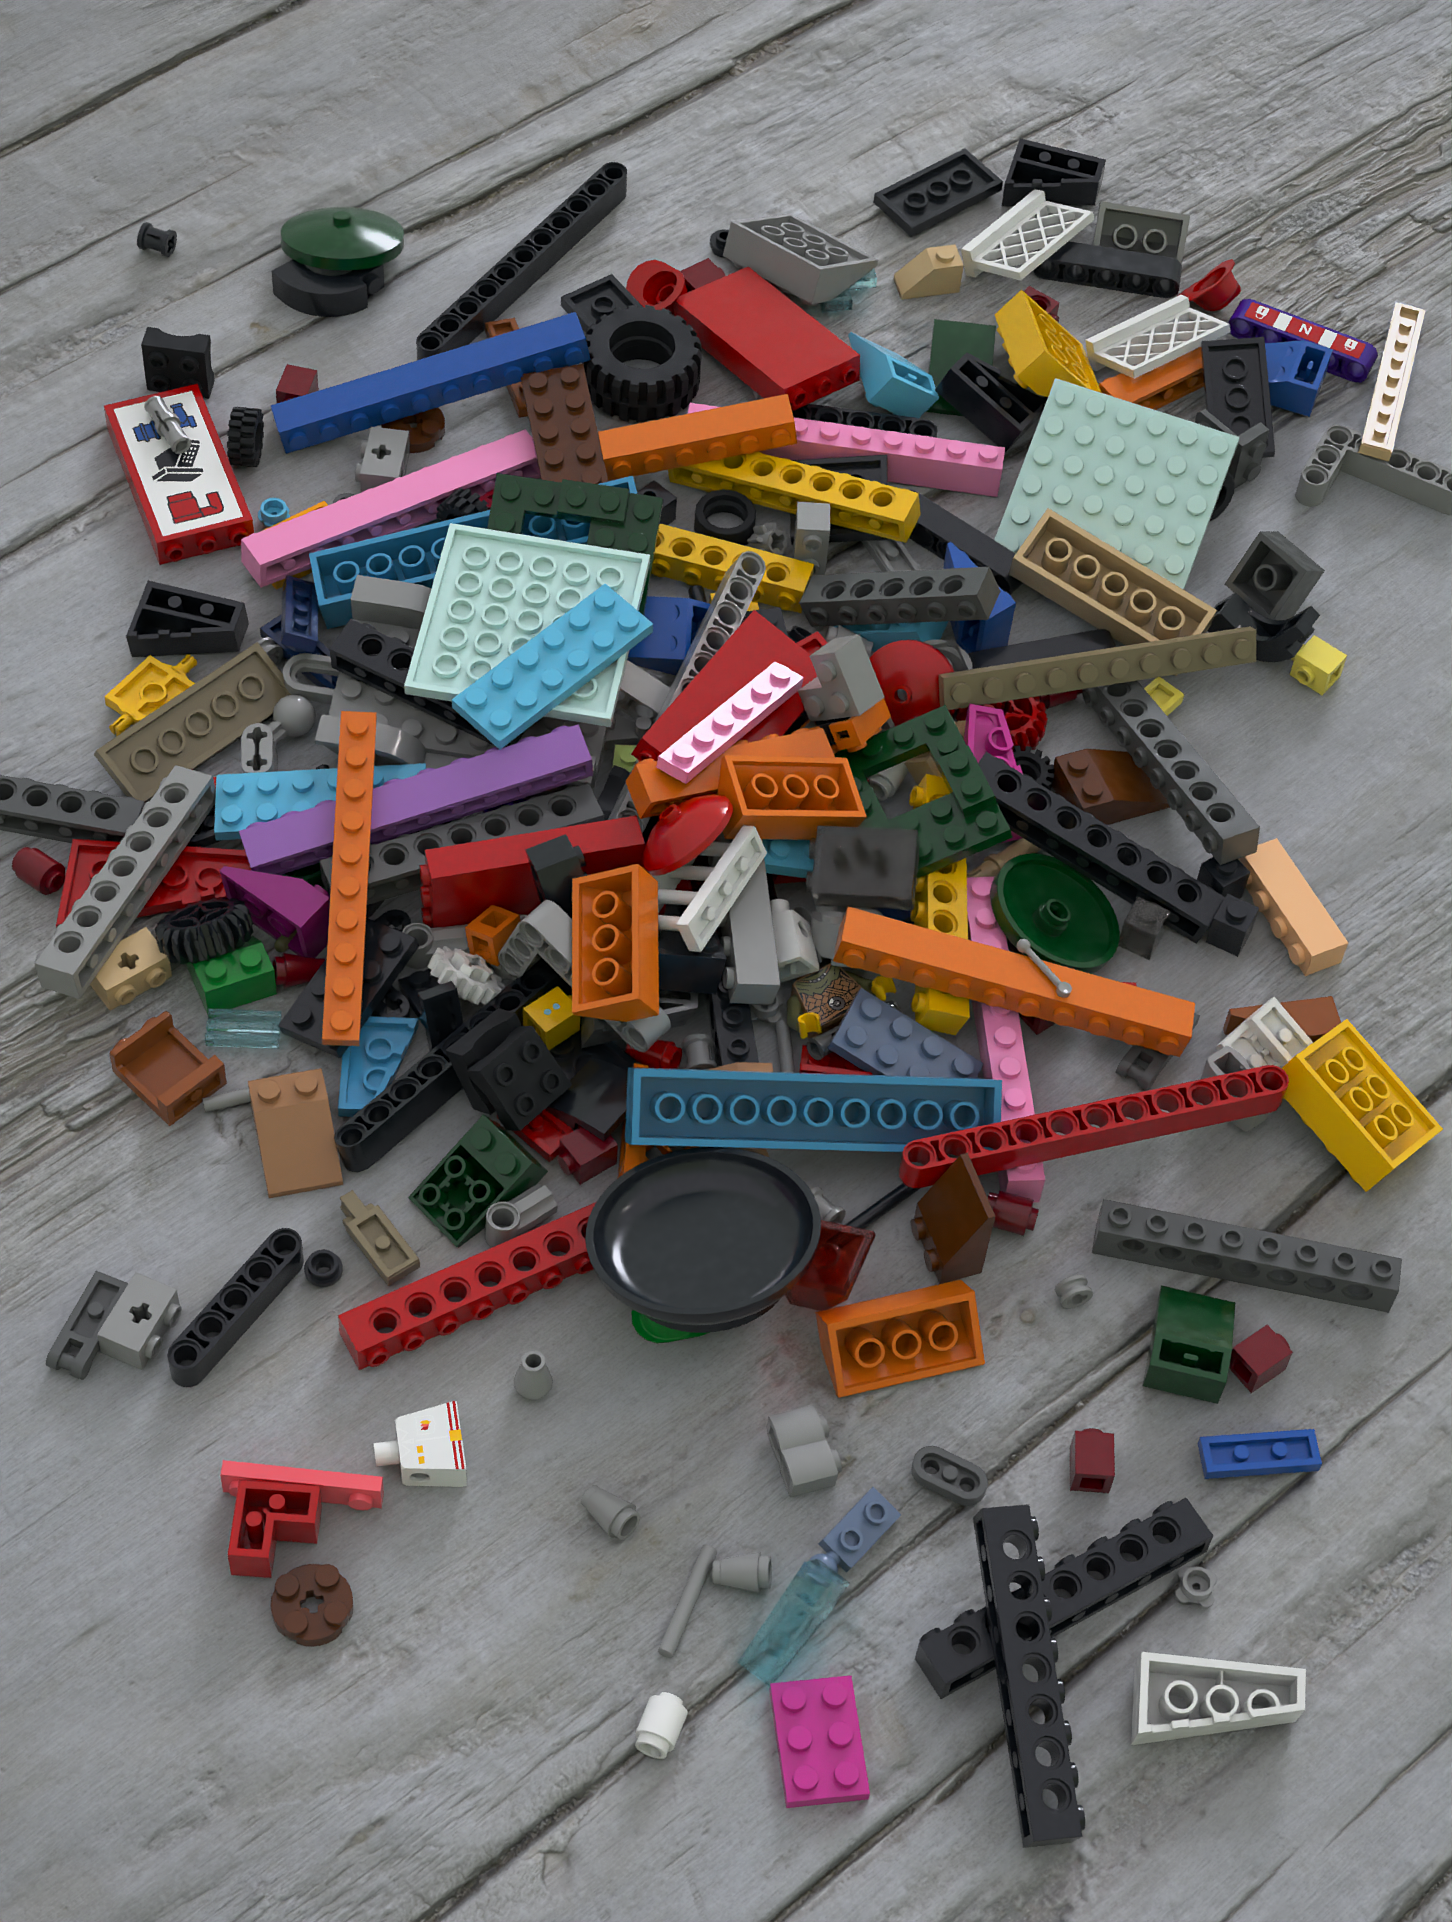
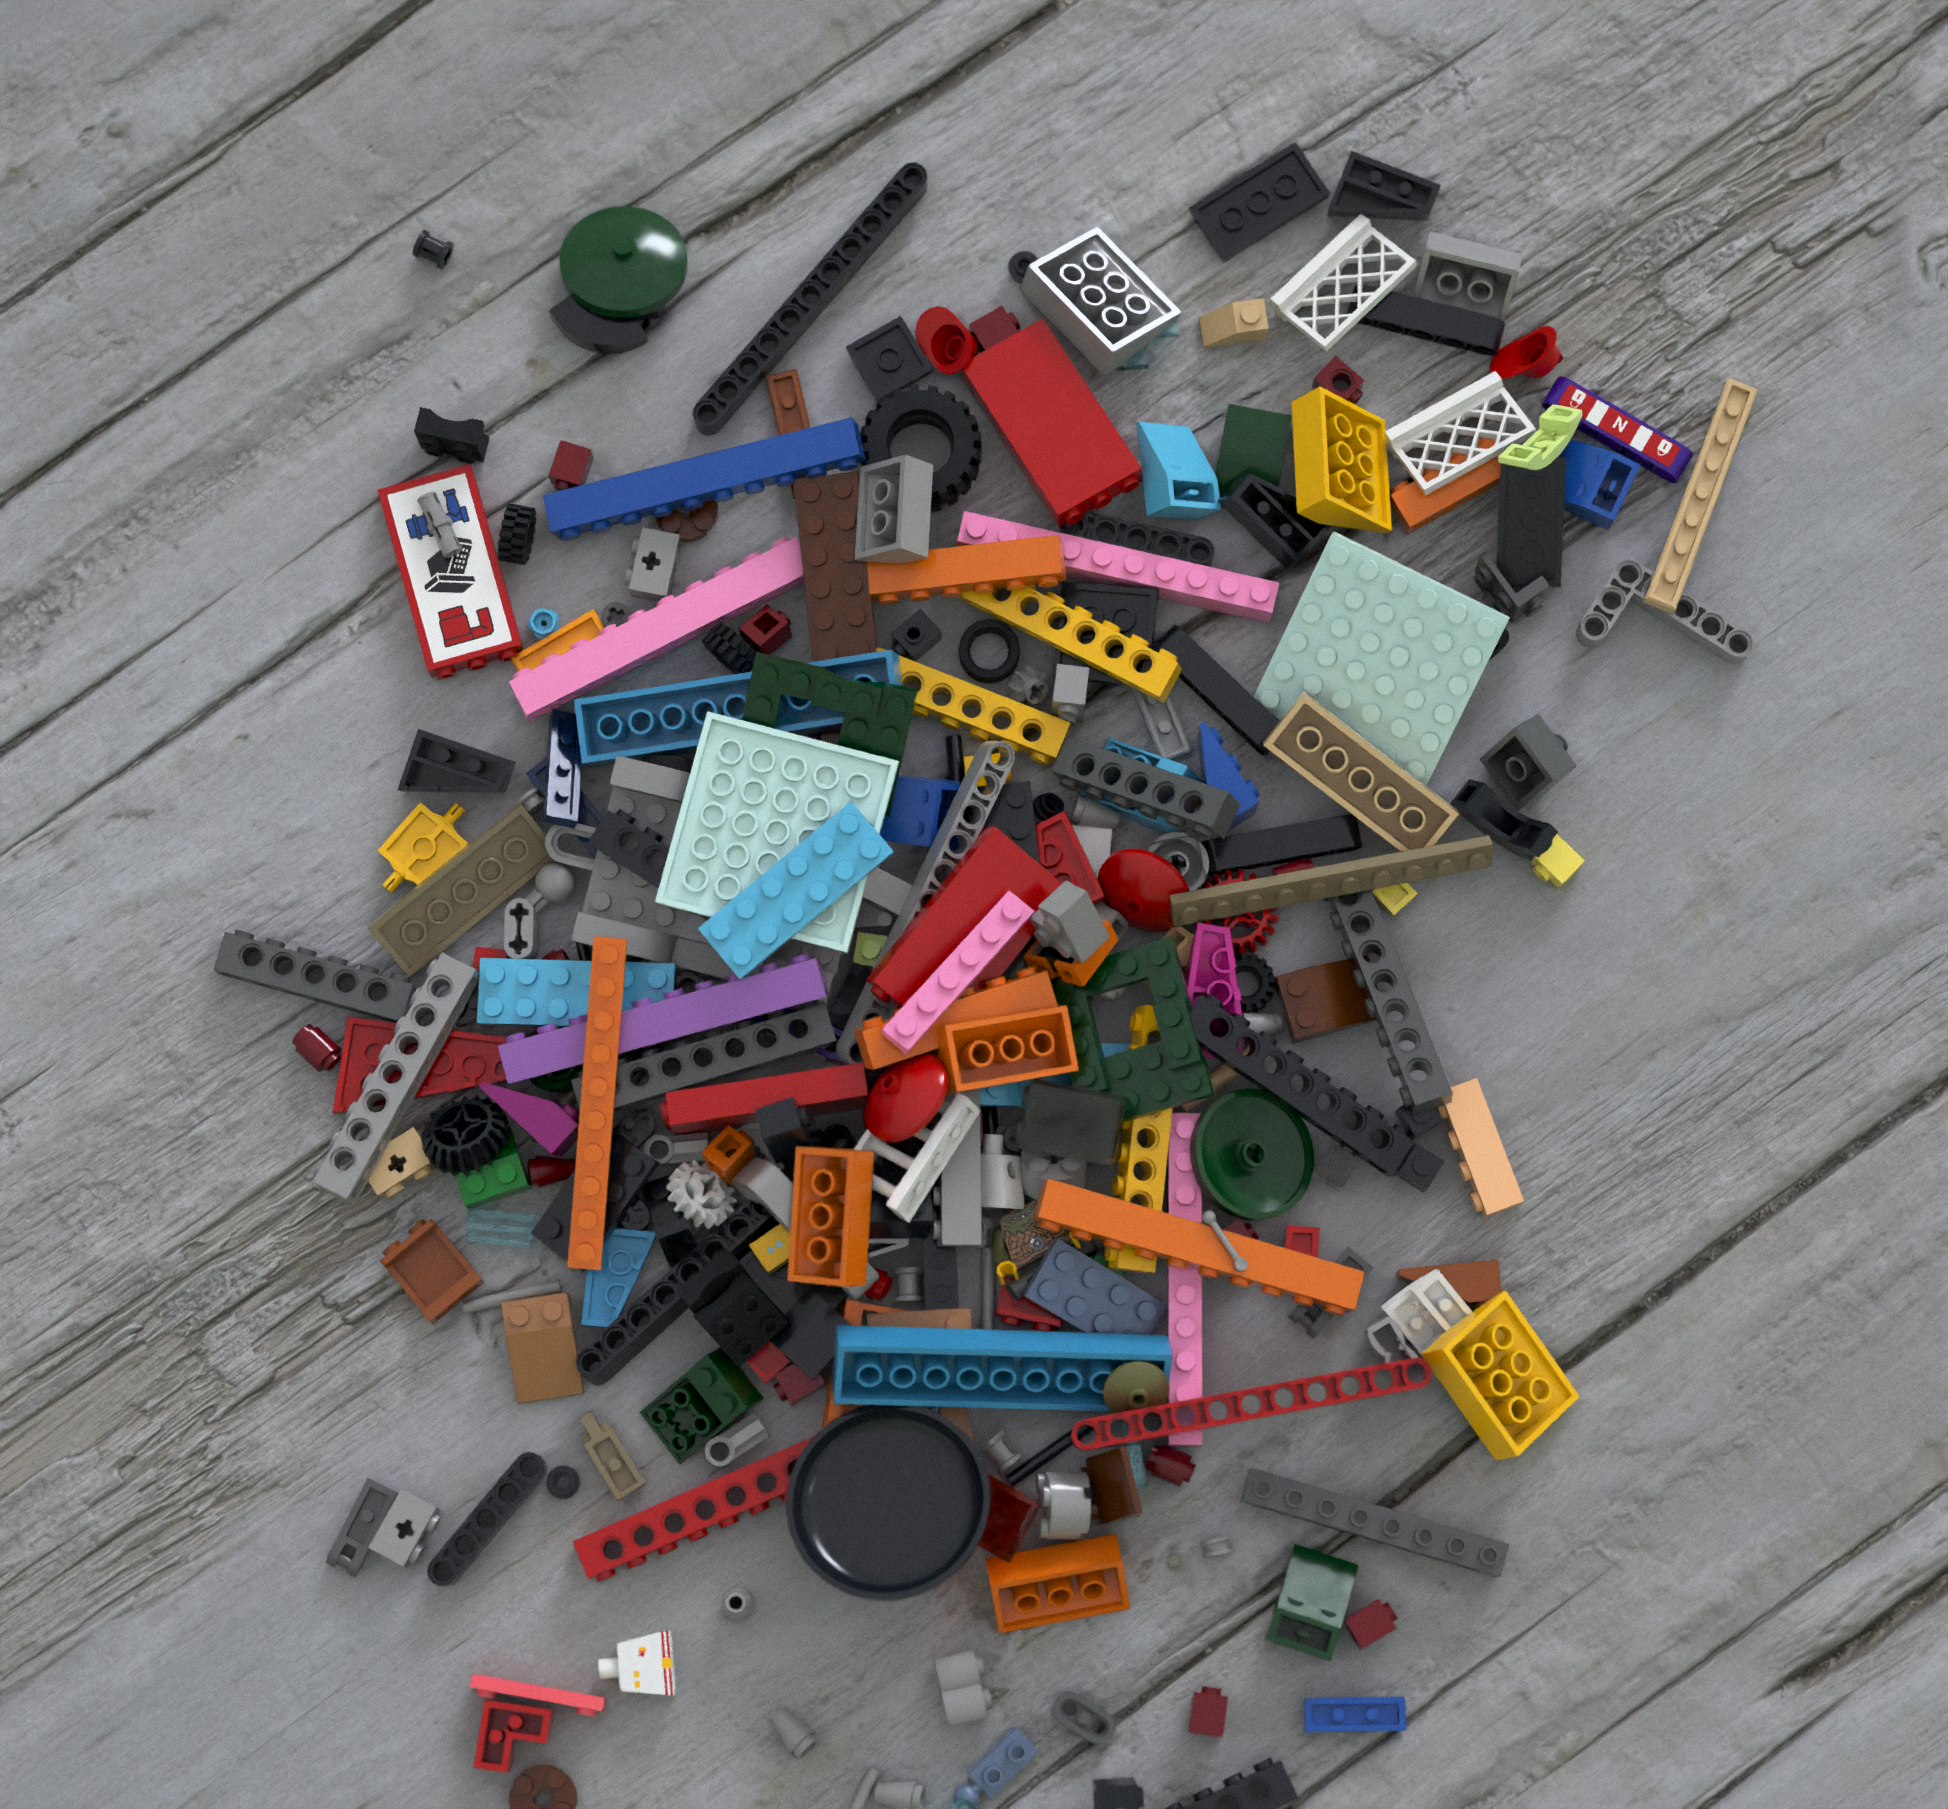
camera: 10 degrees right, 25 degrees up
(623, 385) = (894, 511): none -> light grey slope
(899, 1249) = (1064, 1505): none -> light grey brick
(960, 1105) = (1133, 1380): none -> olive dish
(1236, 324) = (1547, 443): none -> yellowish green slope

